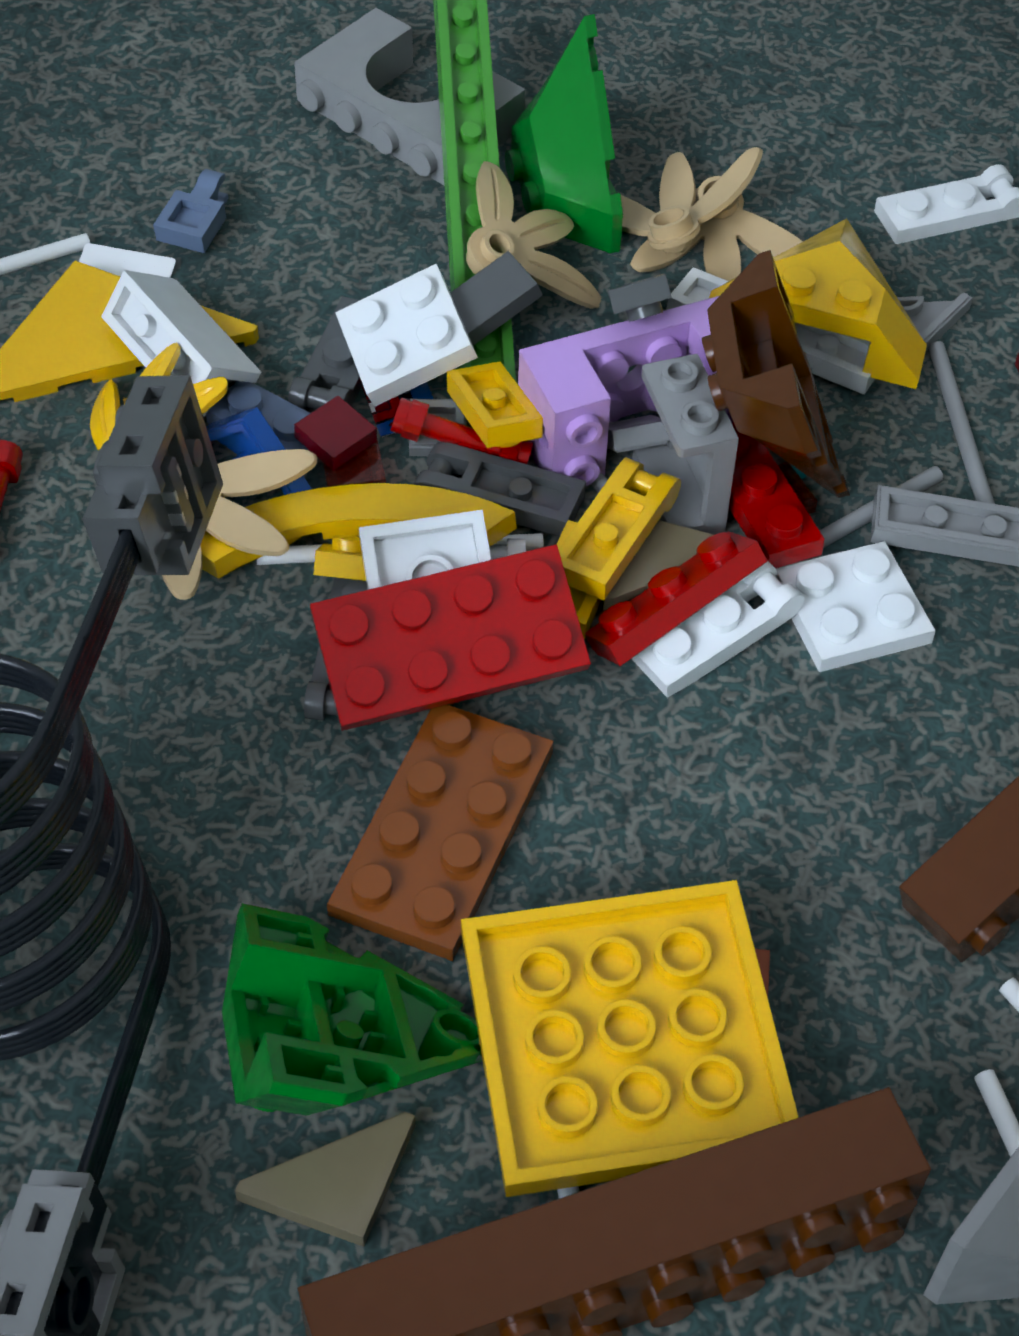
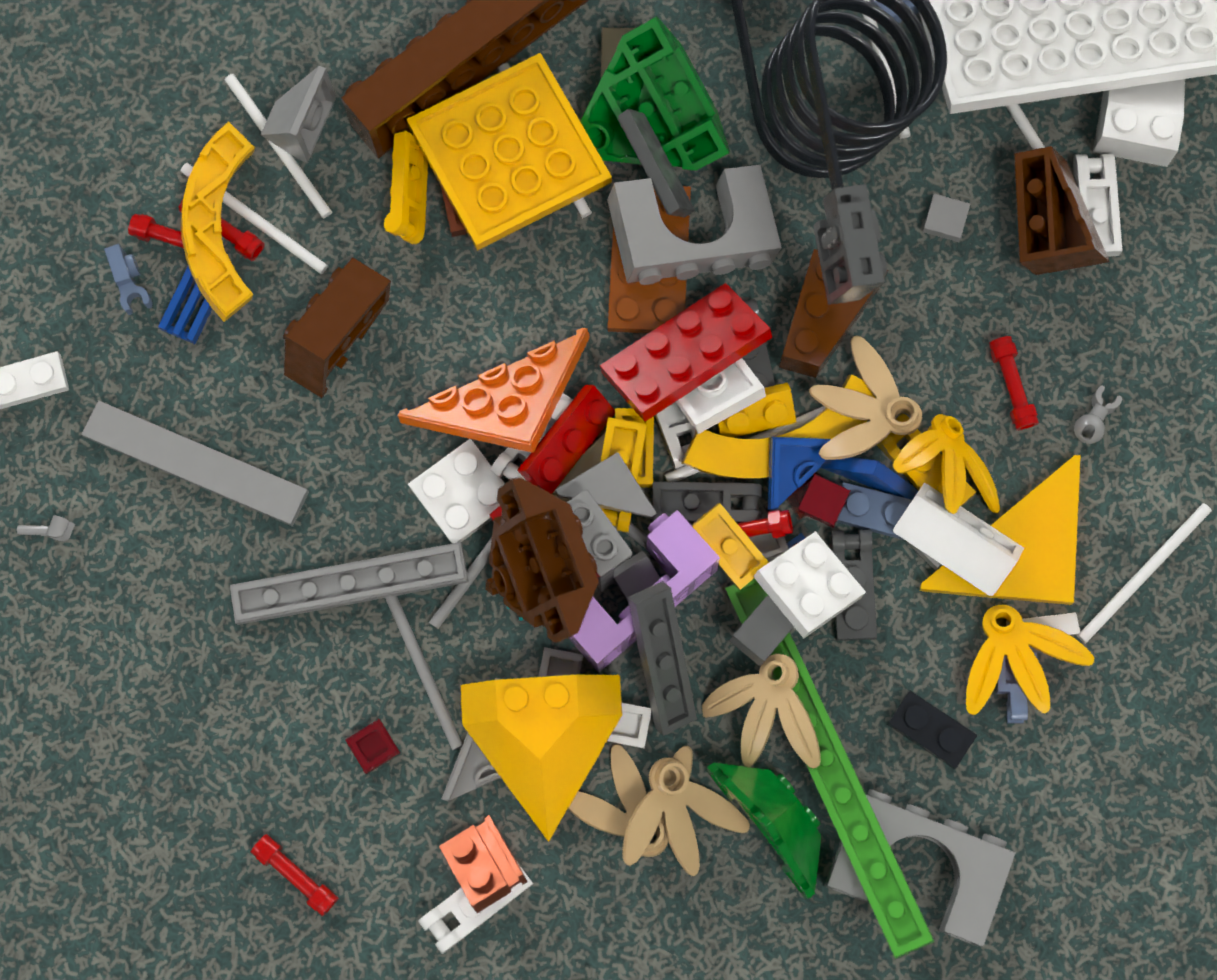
camera: 165 degrees right, 25 degrees up
(177, 234) = (1015, 643): none -> yellow plant
(204, 650) = (817, 326): none -> reddish brown wedge
(282, 775) = (655, 253): none -> light grey arch
(323, 209) = (932, 729): none -> black plate
(351, 483) = (791, 465): none -> blue tile
(375, 918) = (656, 163): none -> dark grey tile
(643, 494) = (611, 488): none -> light grey tile
(752, 680) = (507, 402): none -> orange tile
(832, 1032) = (407, 190): none -> yellow plate
(936, 216) = (482, 864): none -> plate

